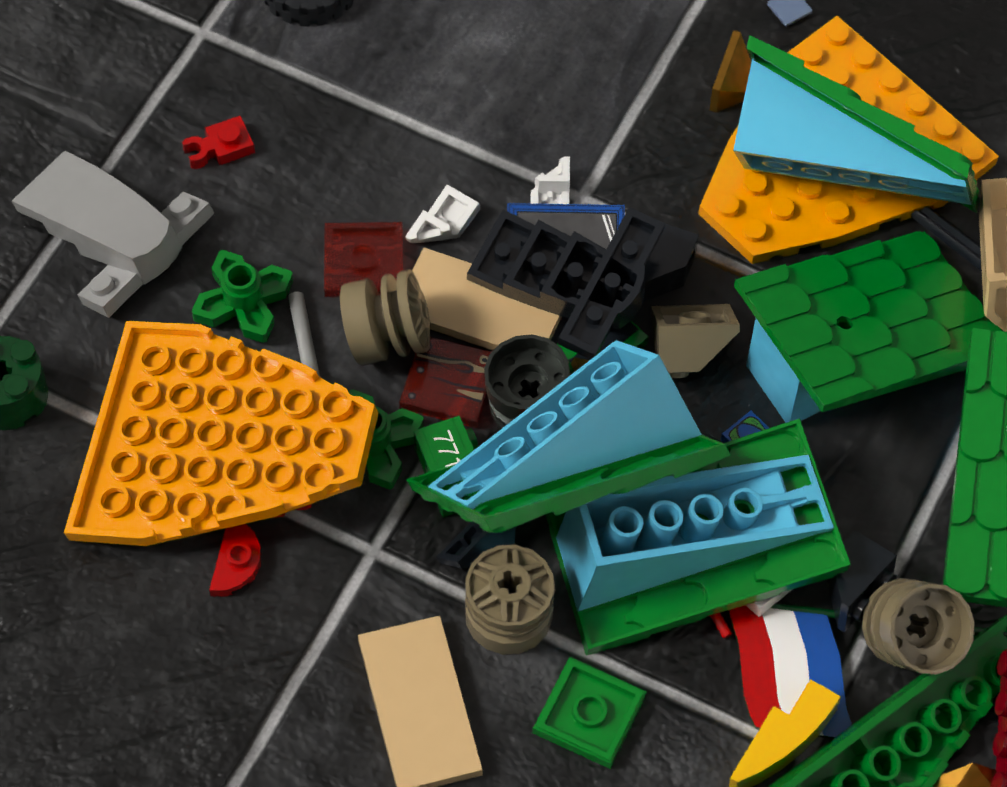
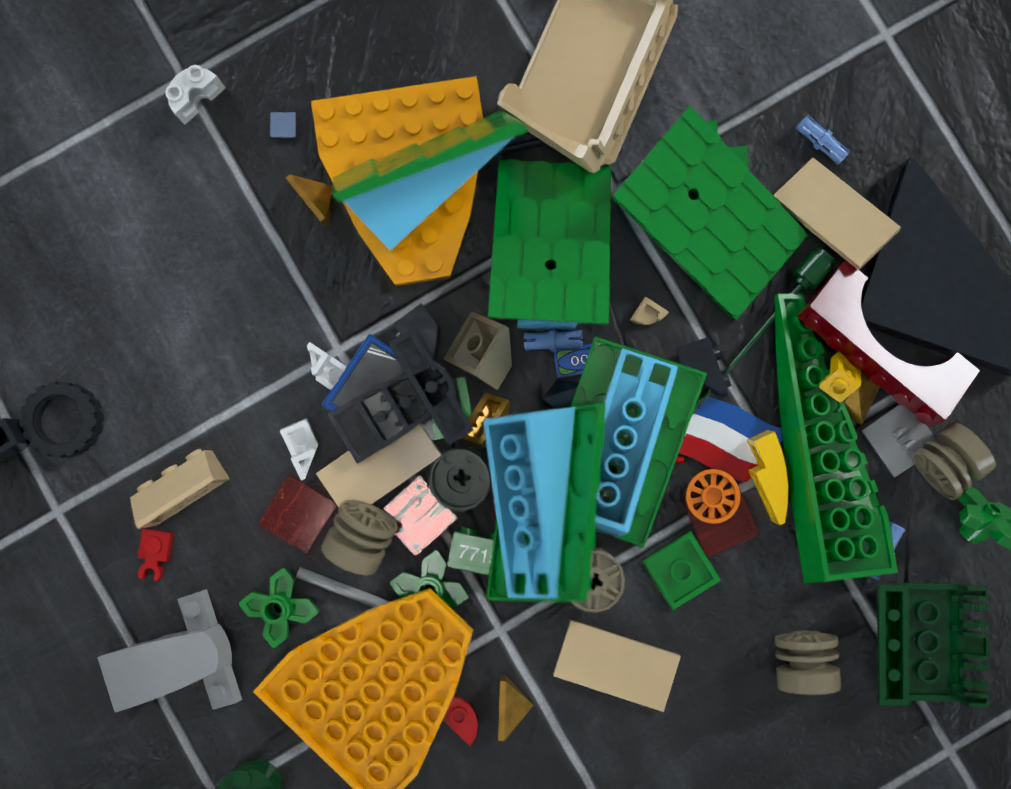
camera: 55 degrees left, 25 degrees up
(286, 607) = (512, 707): none -> pearl gold slope
(310, 123) = (177, 488): none -> tan slope
(687, 723) = (726, 534): none -> clear red tile
(708, 686) = (712, 496): none -> orange wheel
(759, 399) = (553, 340): none -> medium blue pin
(874, 492) = (648, 313): none -> tan tile
(938, 629) = (763, 358): dark tan wheel -> none
(965, 743) = (842, 378): none -> yellow bracket

